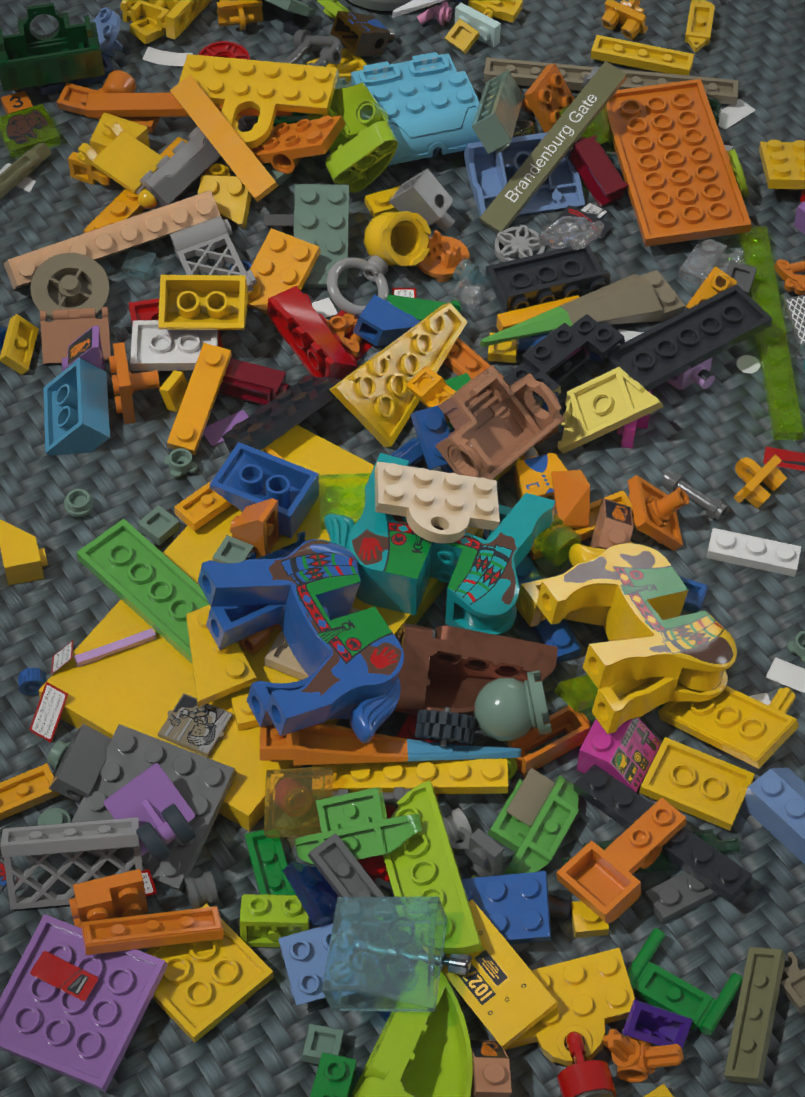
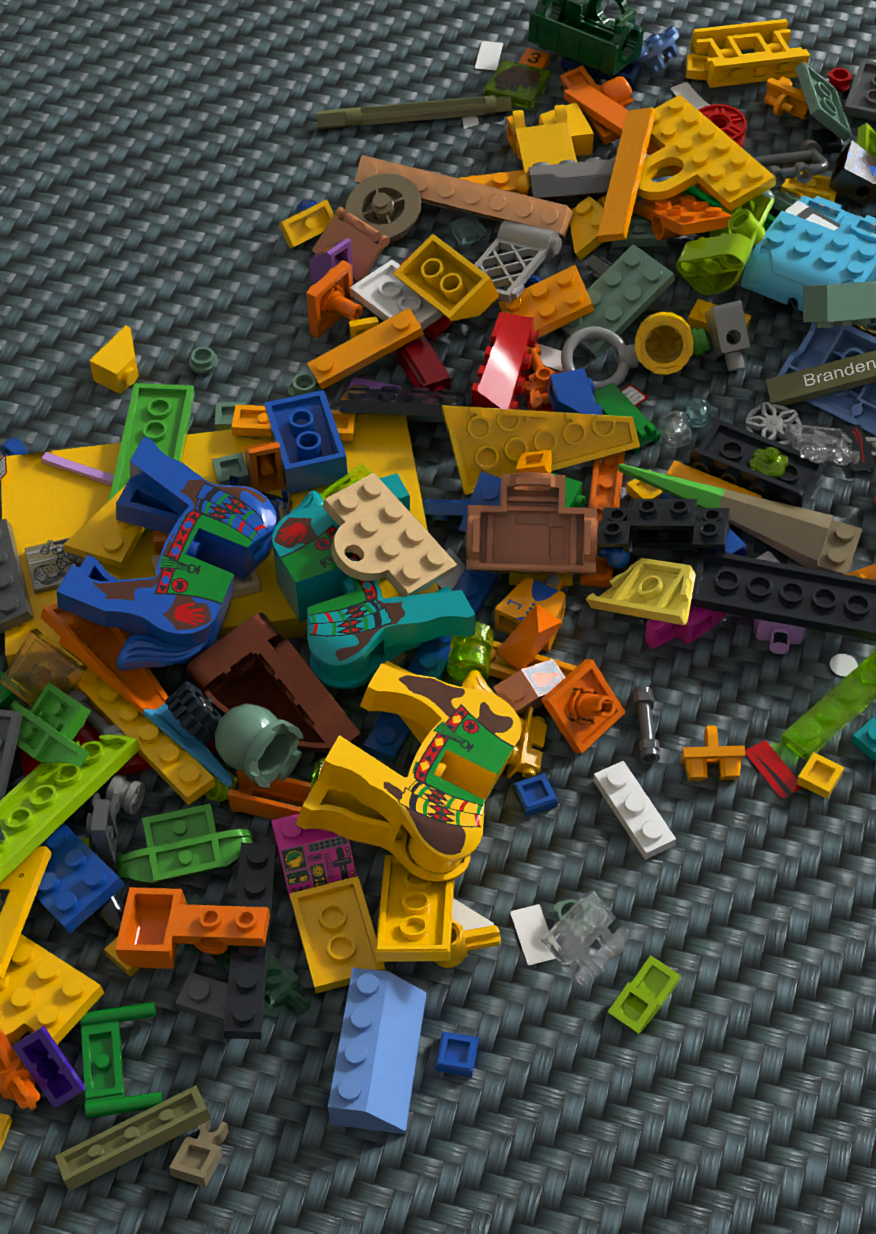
camera: 50 degrees right, 0 degrees up
(76, 410) = (281, 298): dark azure slope -> none
(380, 81) = (803, 211): none -> white sticker
(443, 257) = (697, 382): orange plate -> none
(530, 797) = (201, 822): dark tan sticker -> none
(555, 269) = (769, 462): none -> clear neon green plant

